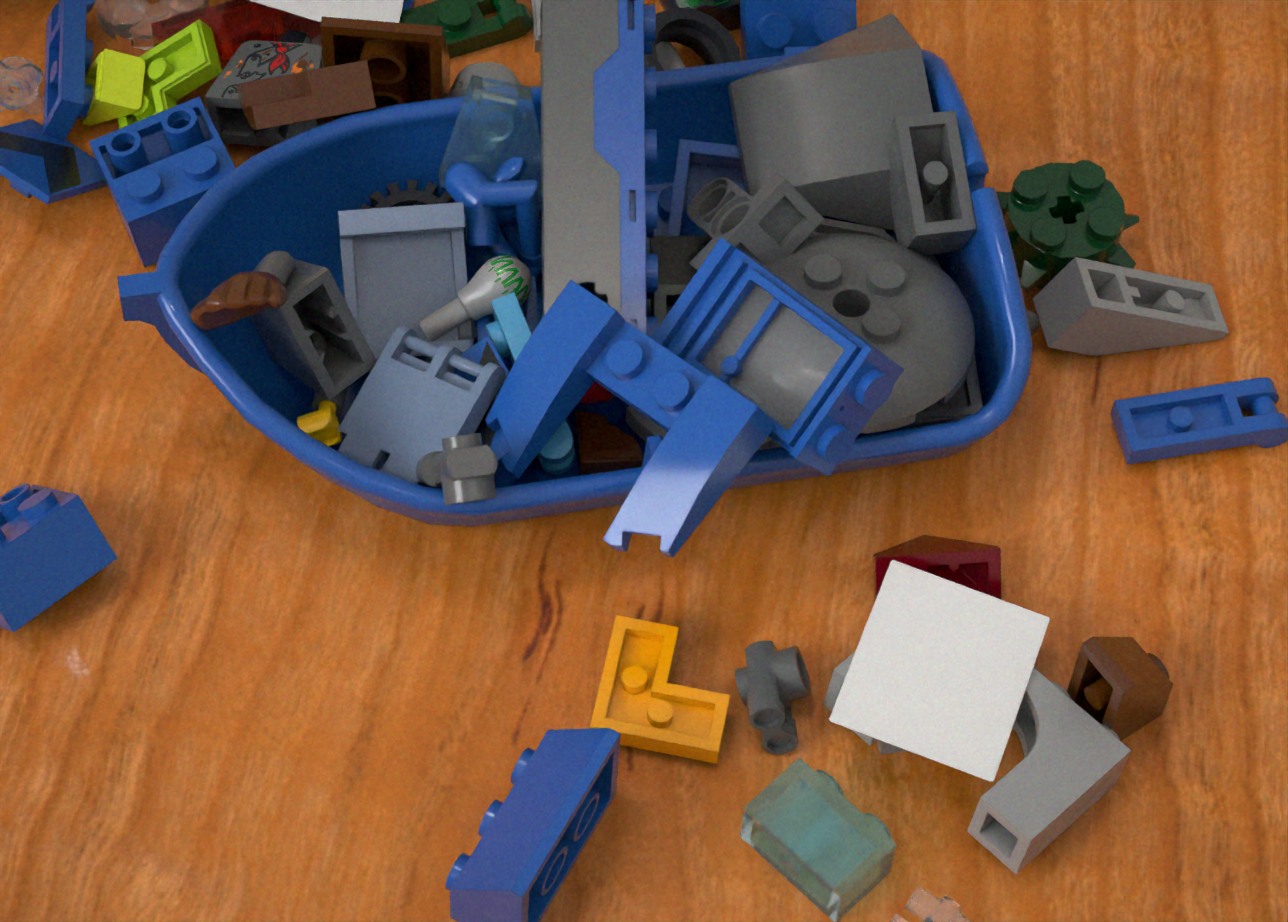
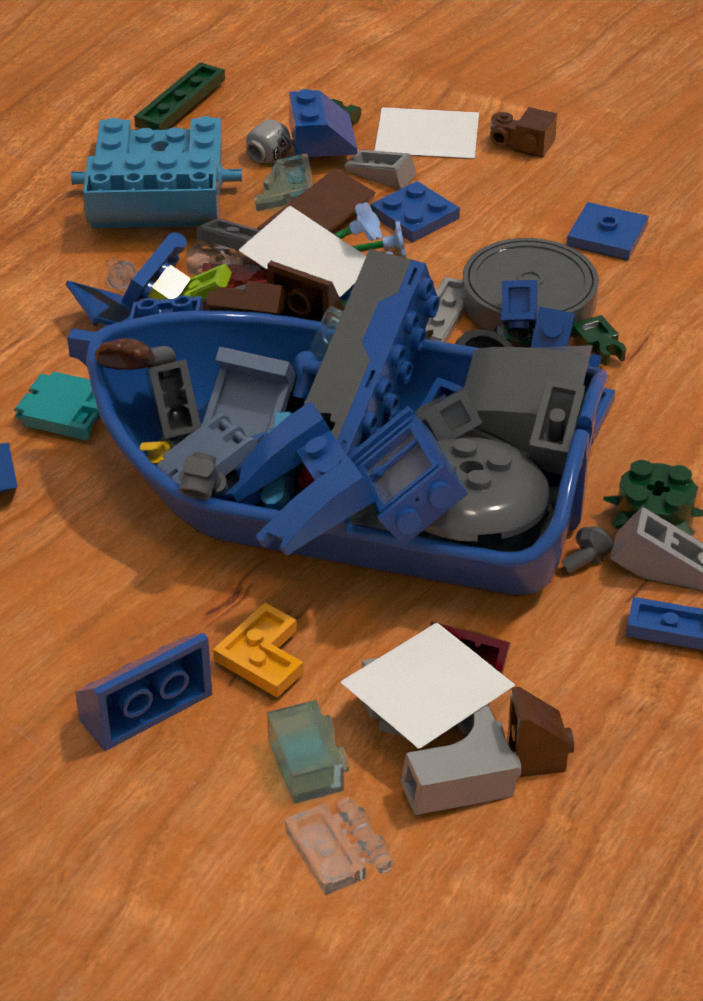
camera: 30 degrees right, 15 degrees down
(80, 371) = (59, 405): none -> teal plate
(493, 280) = (267, 420): light grey piece -> none
(768, 687) = (327, 669): dark grey plate -> none

